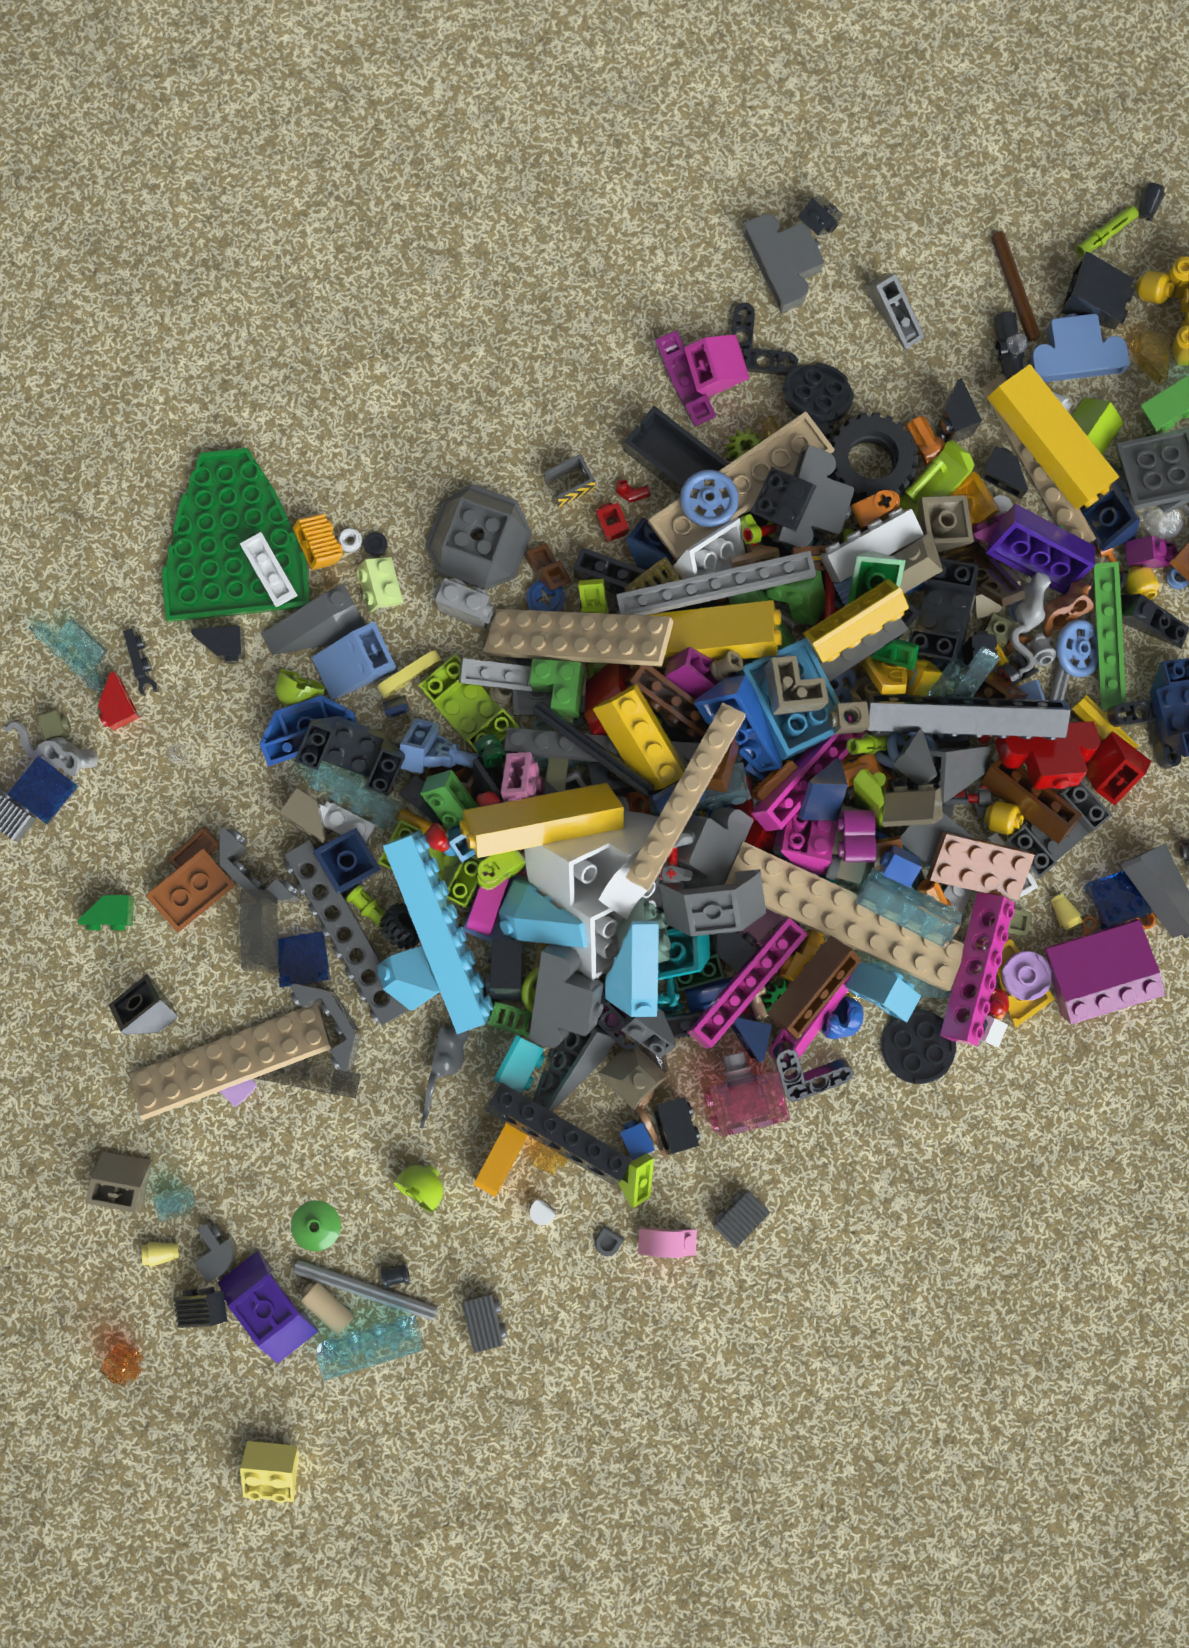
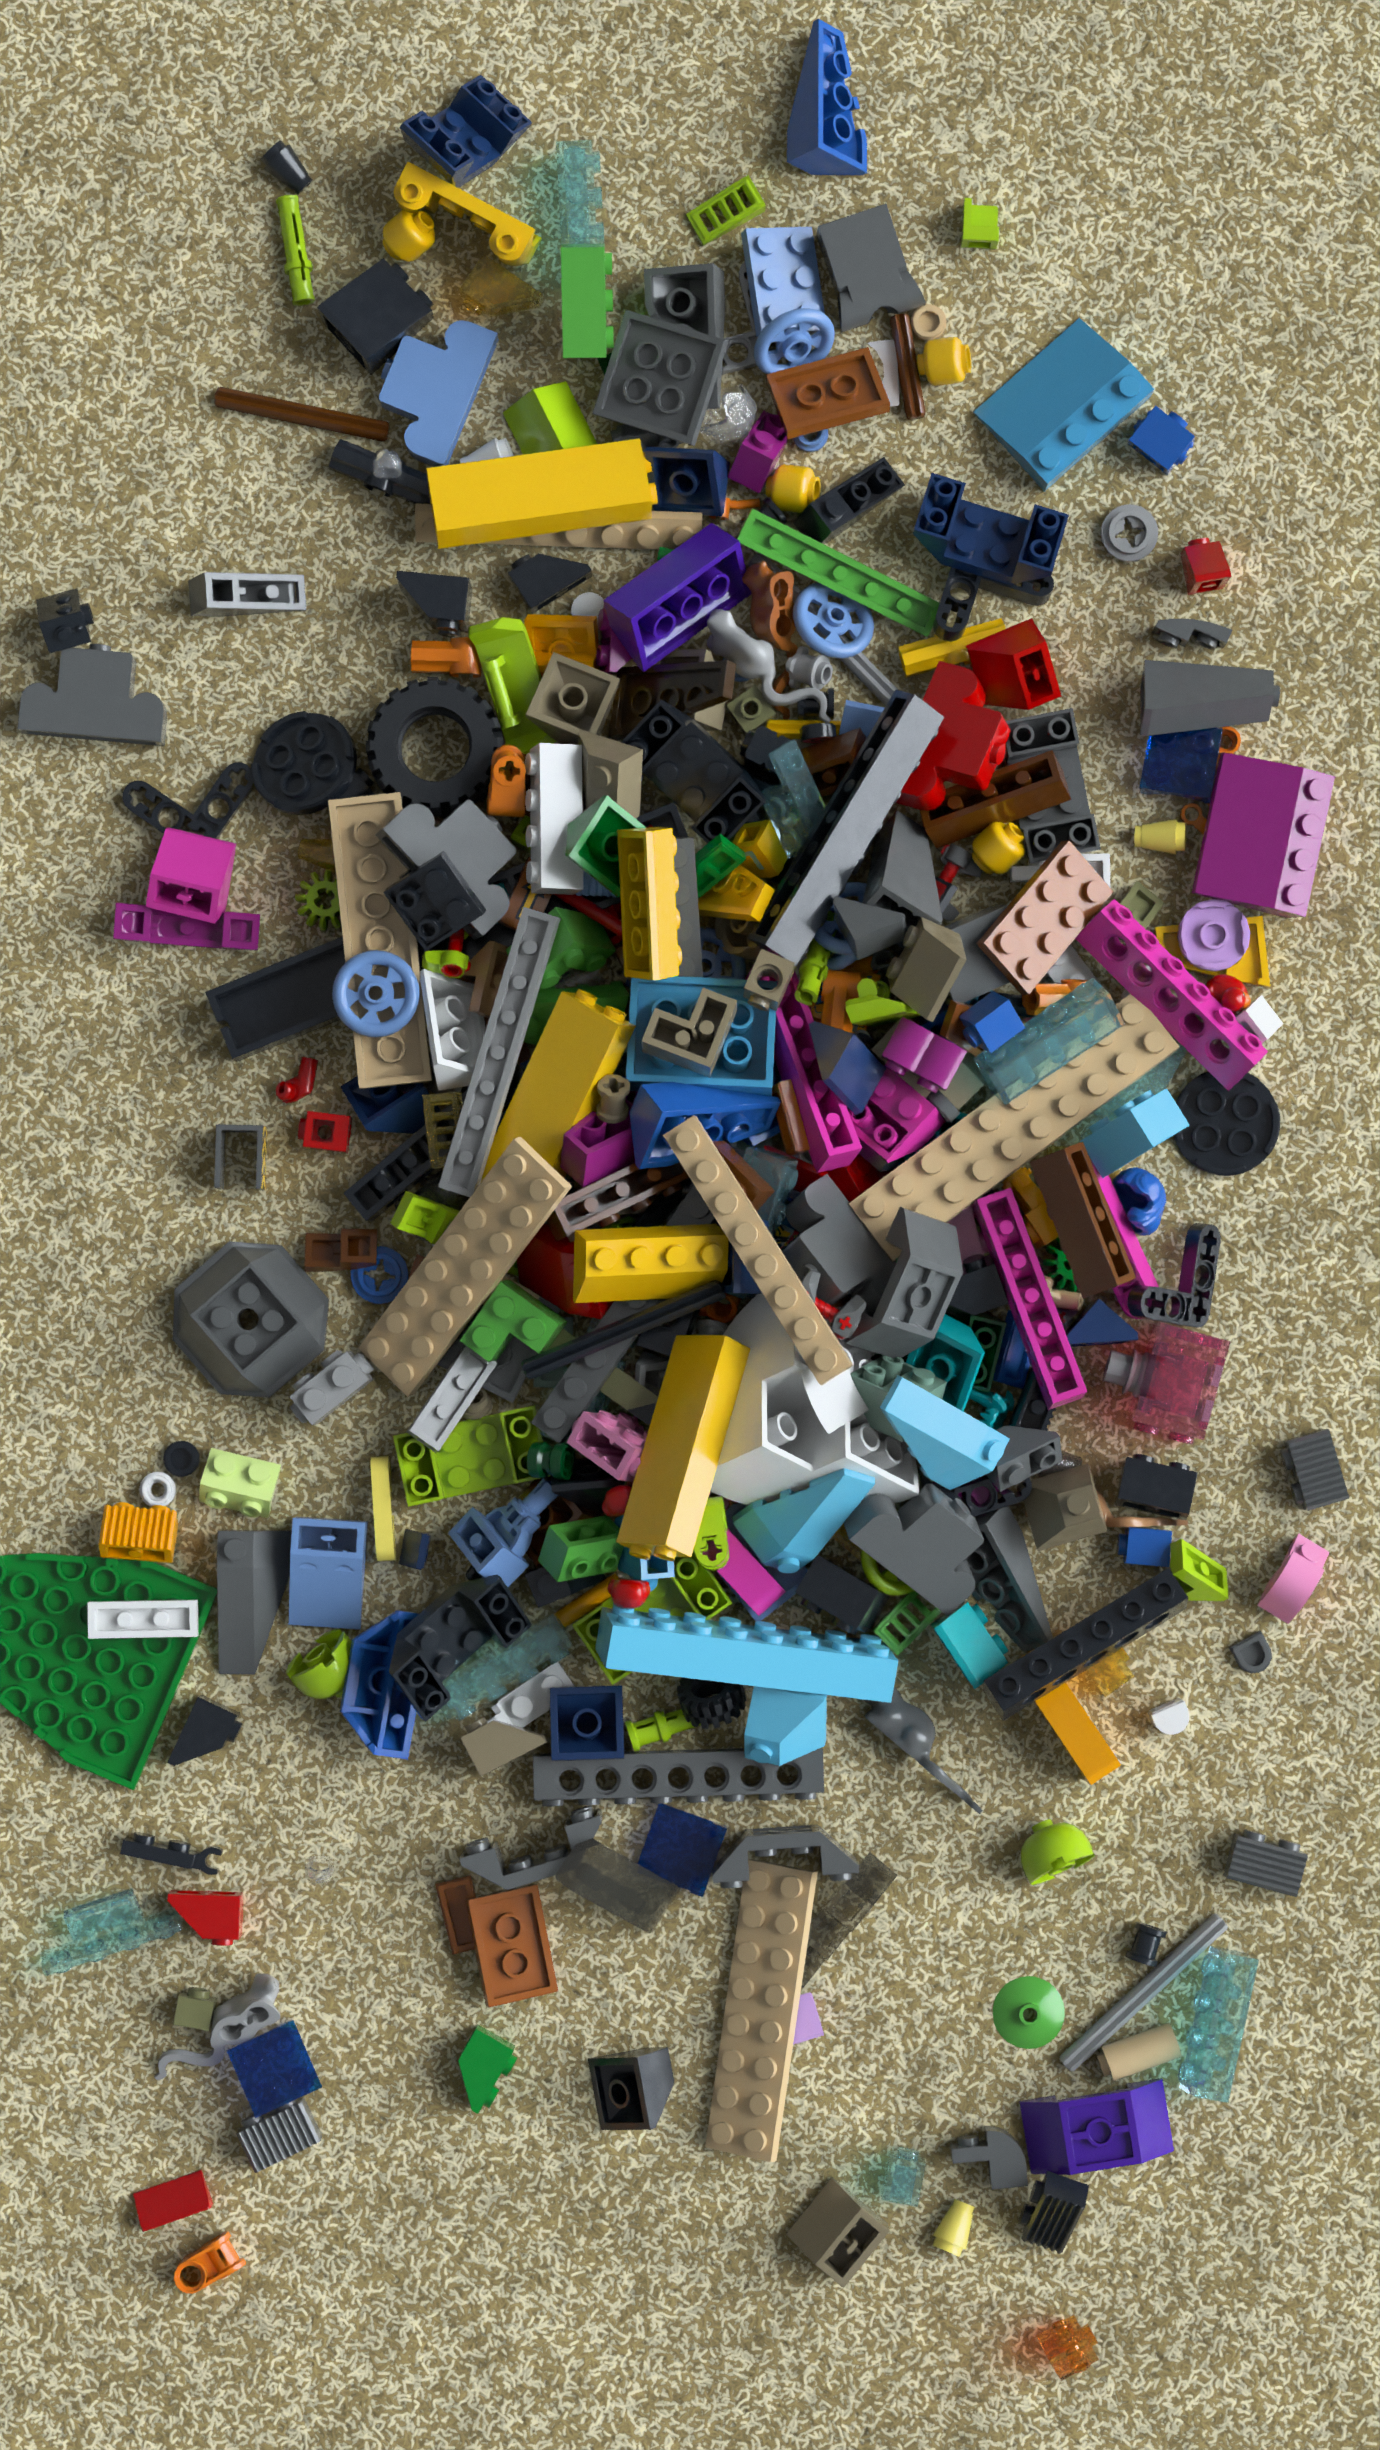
camera: 60 degrees left, 5 degrees up
(269, 1471) = (1301, 2231): light yellow slope -> none

